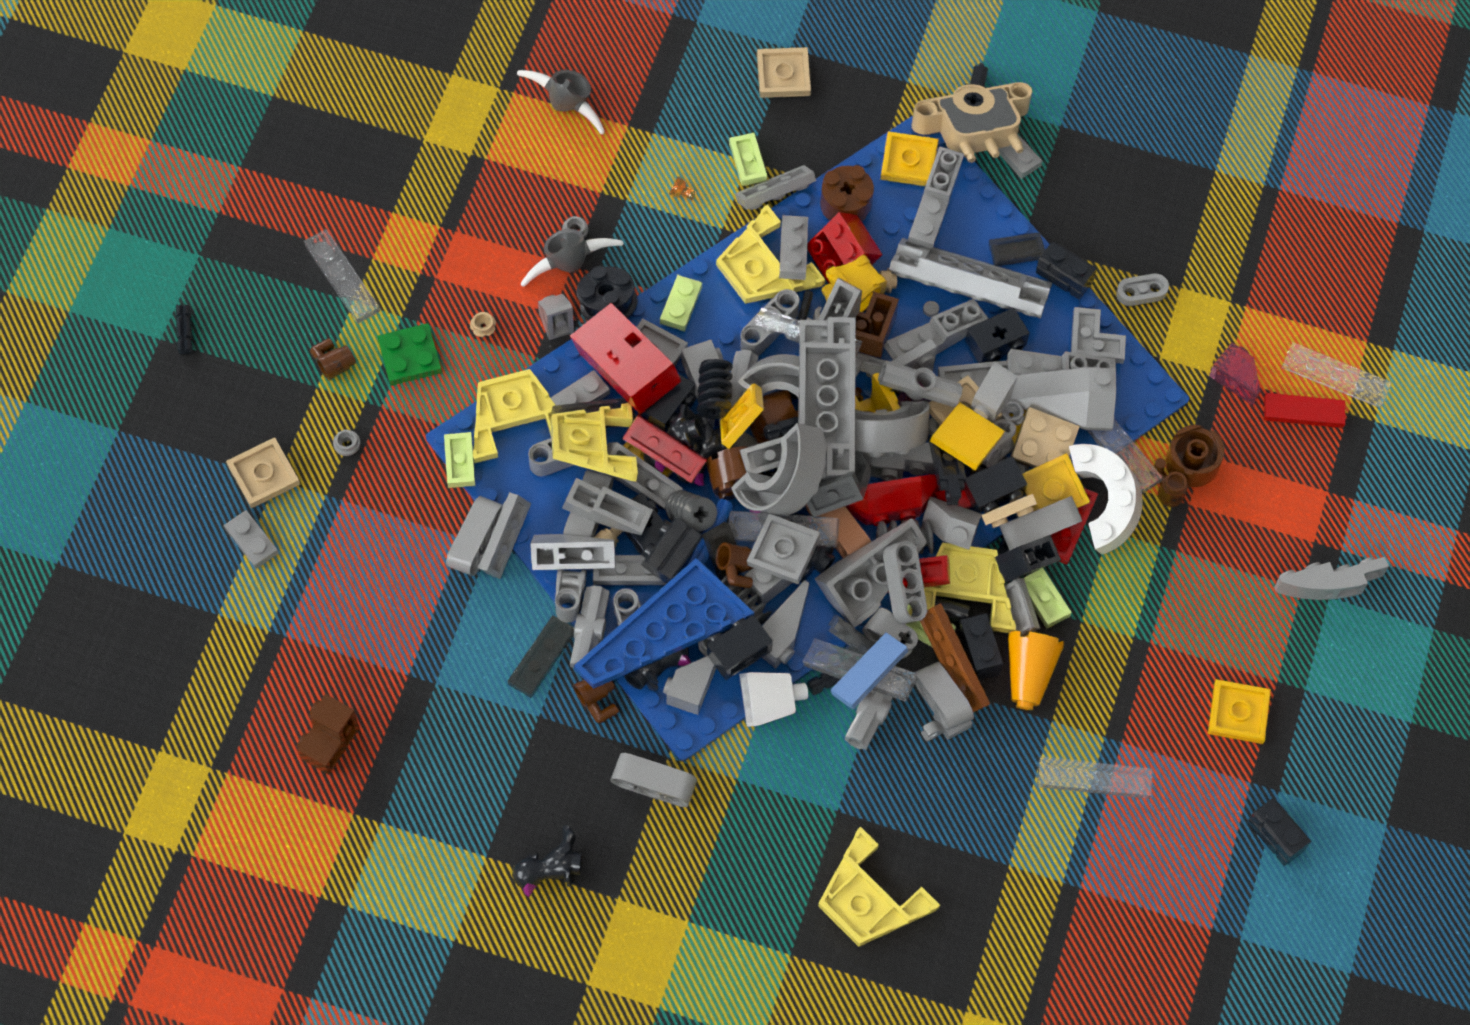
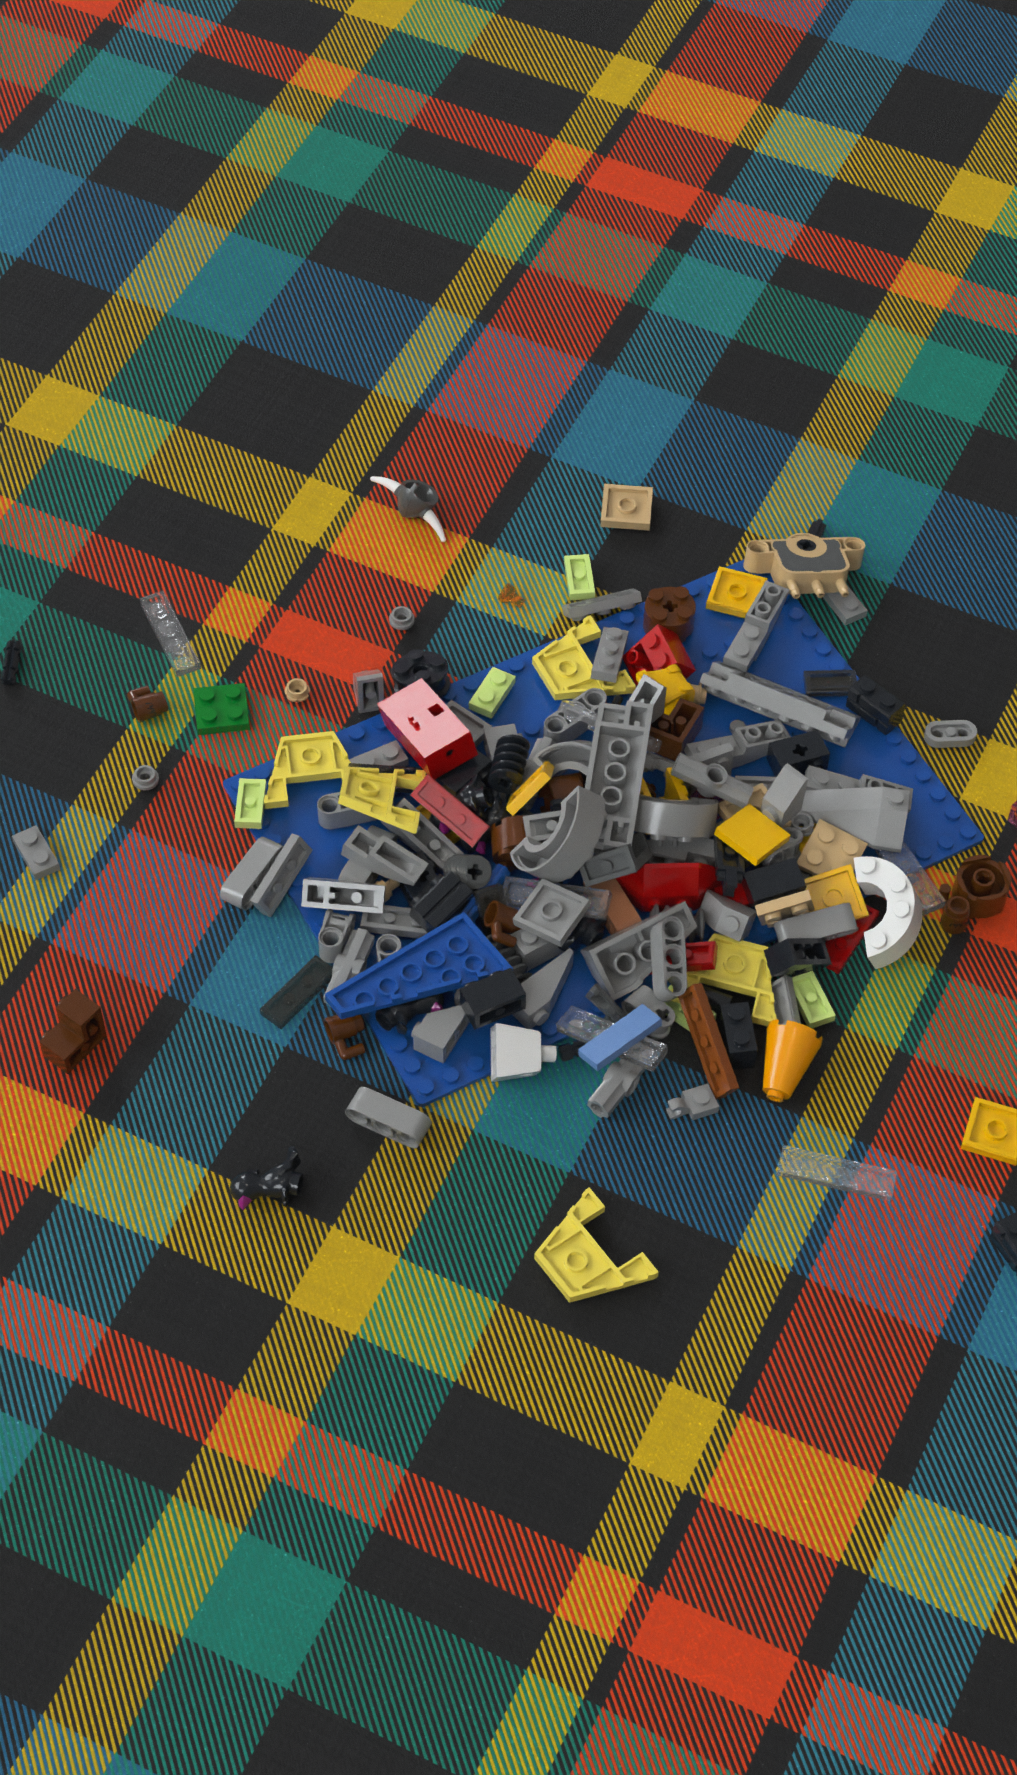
camera: 10 degrees right, 10 degrees down
(263, 472) = (59, 794): tan plate -> none
(567, 252) = (390, 637): dark grey helmet -> none
(943, 696) = (692, 1074): light grey beam -> none
(1089, 341) = (889, 768): light grey plate -> none

